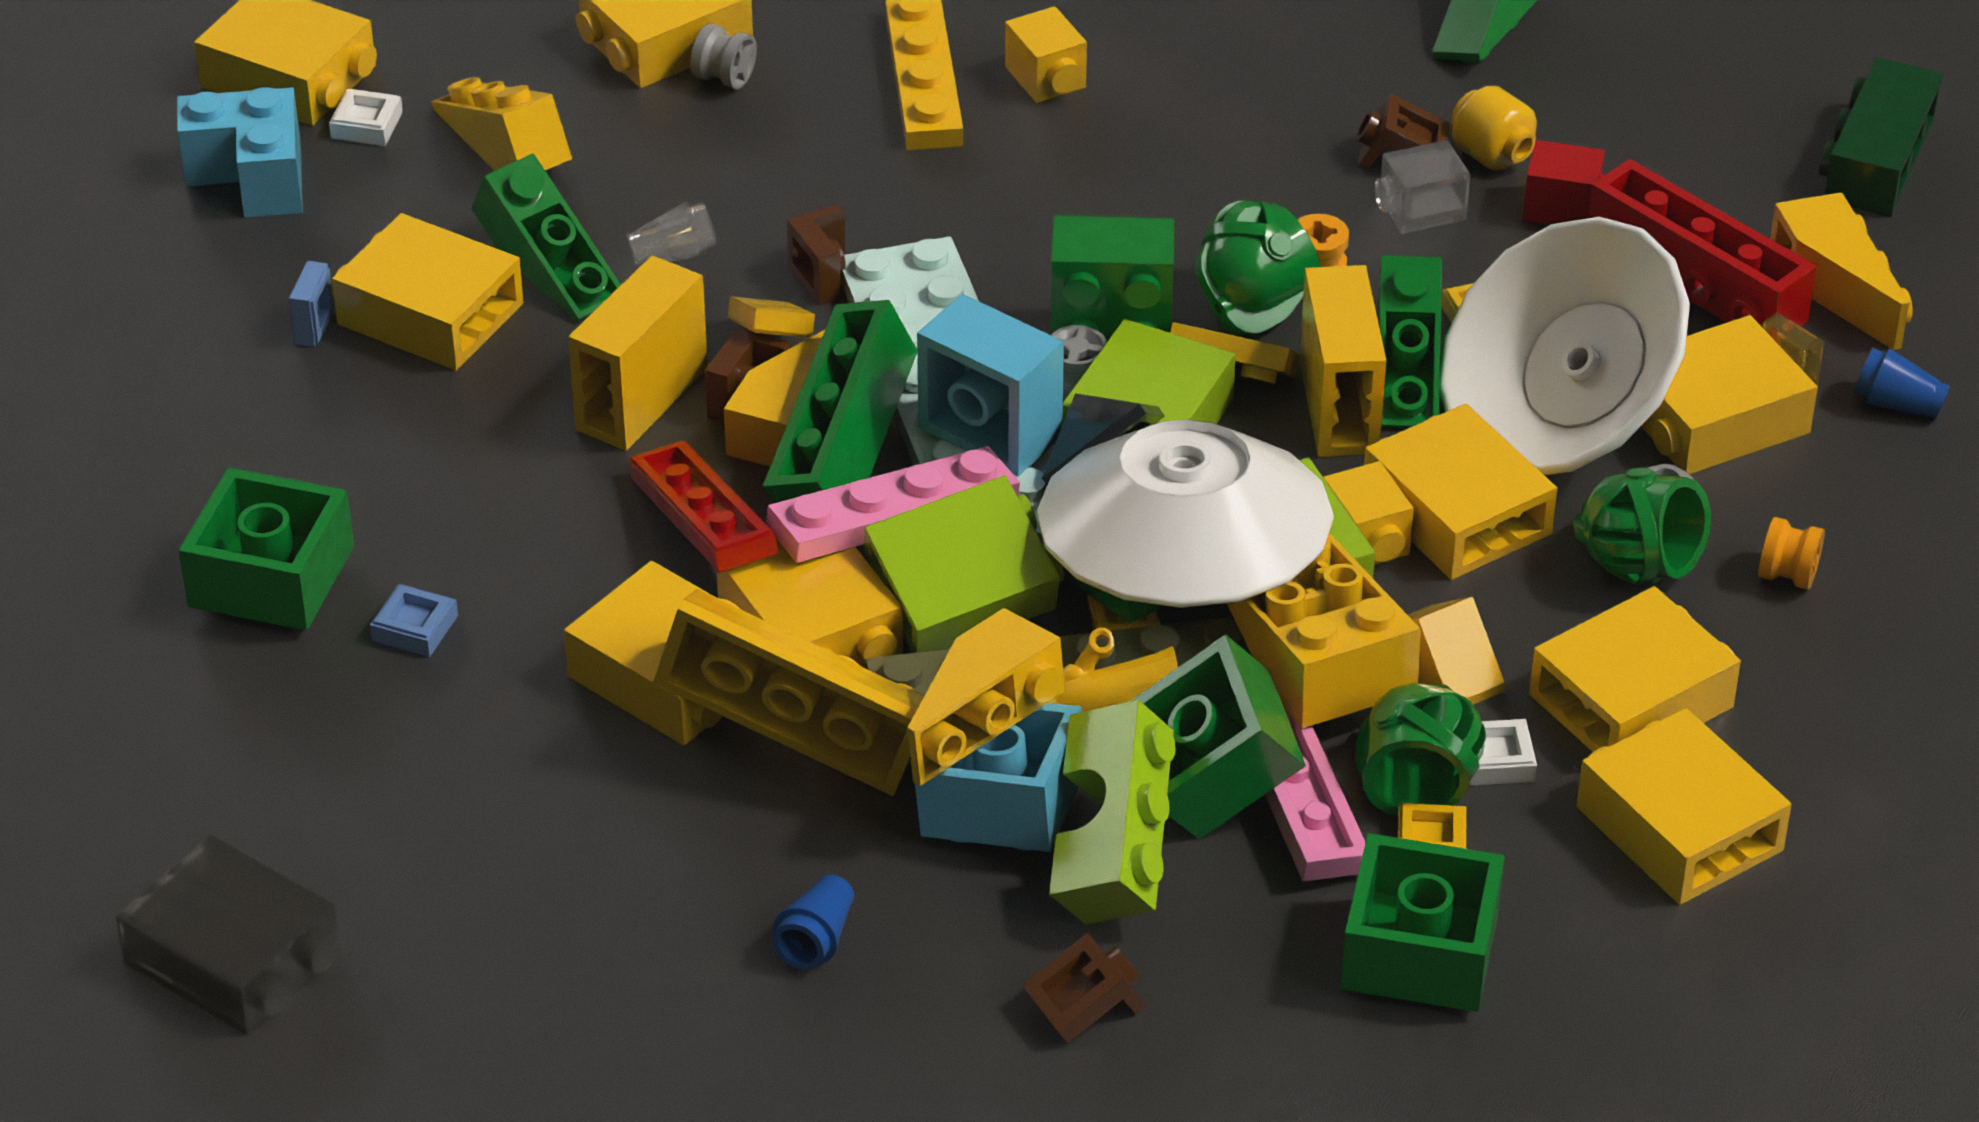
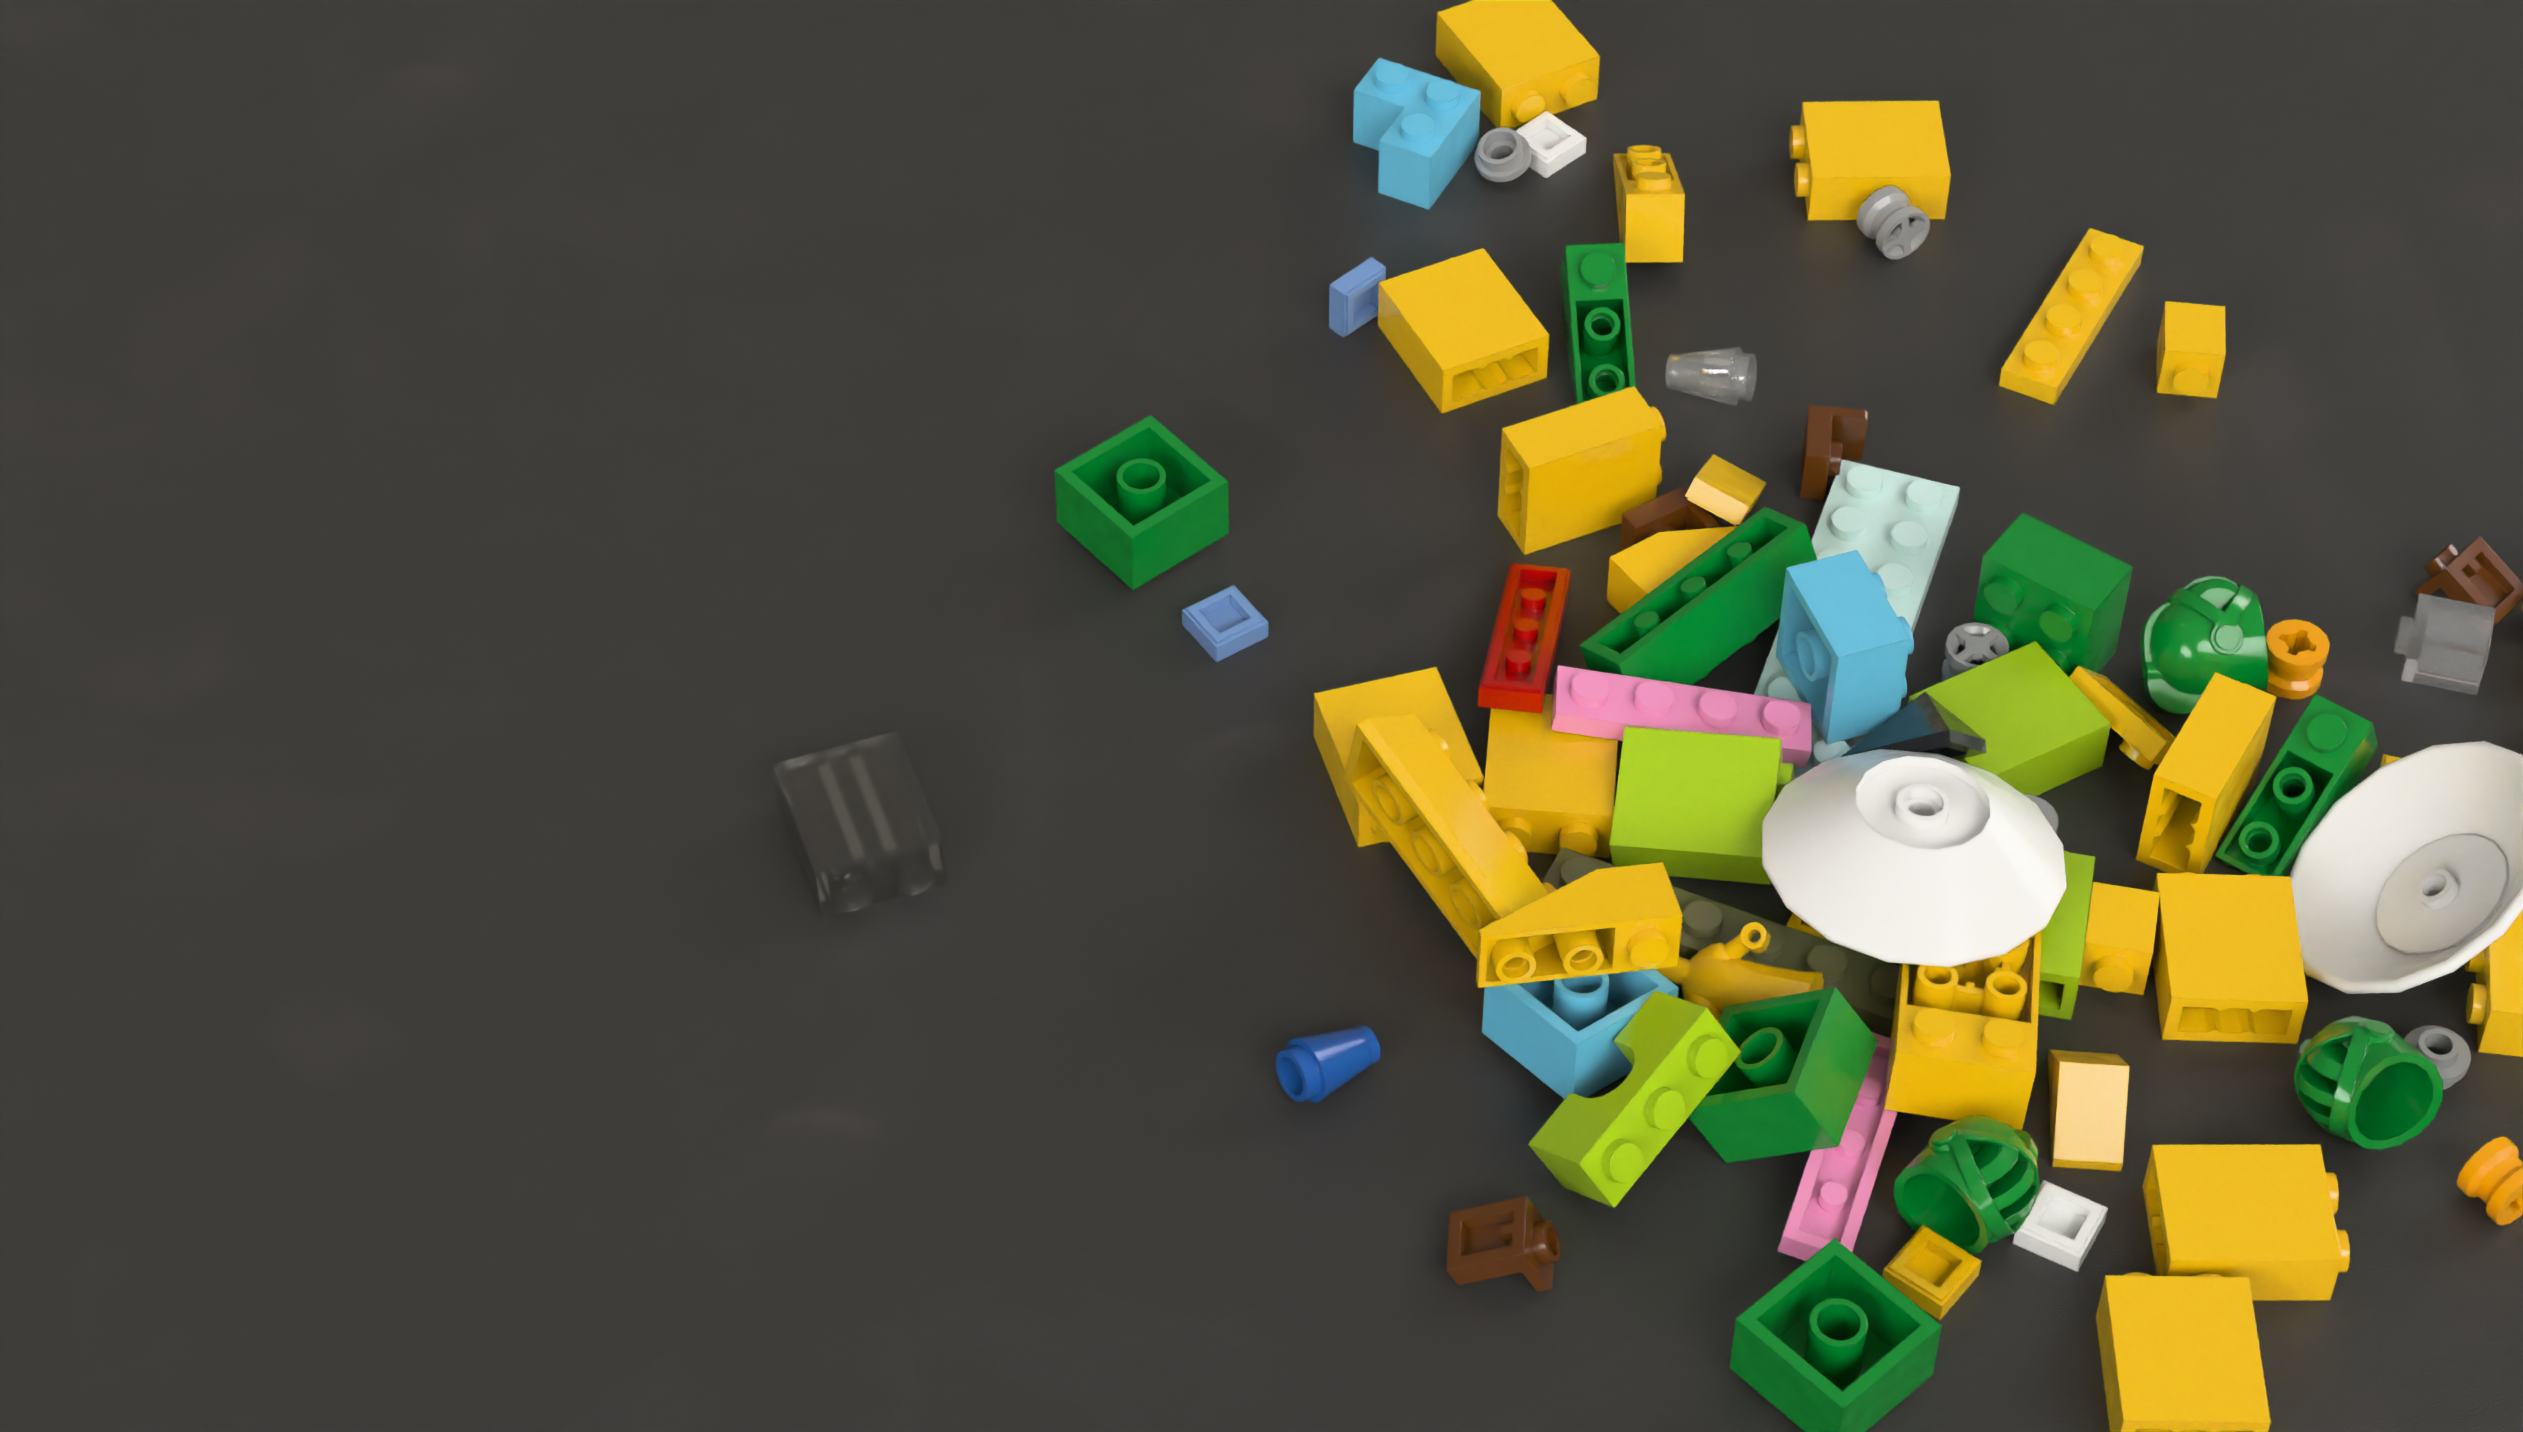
camera: 35 degrees right, 5 degrees up
(335, 128) = (1498, 145): none -> light grey plate

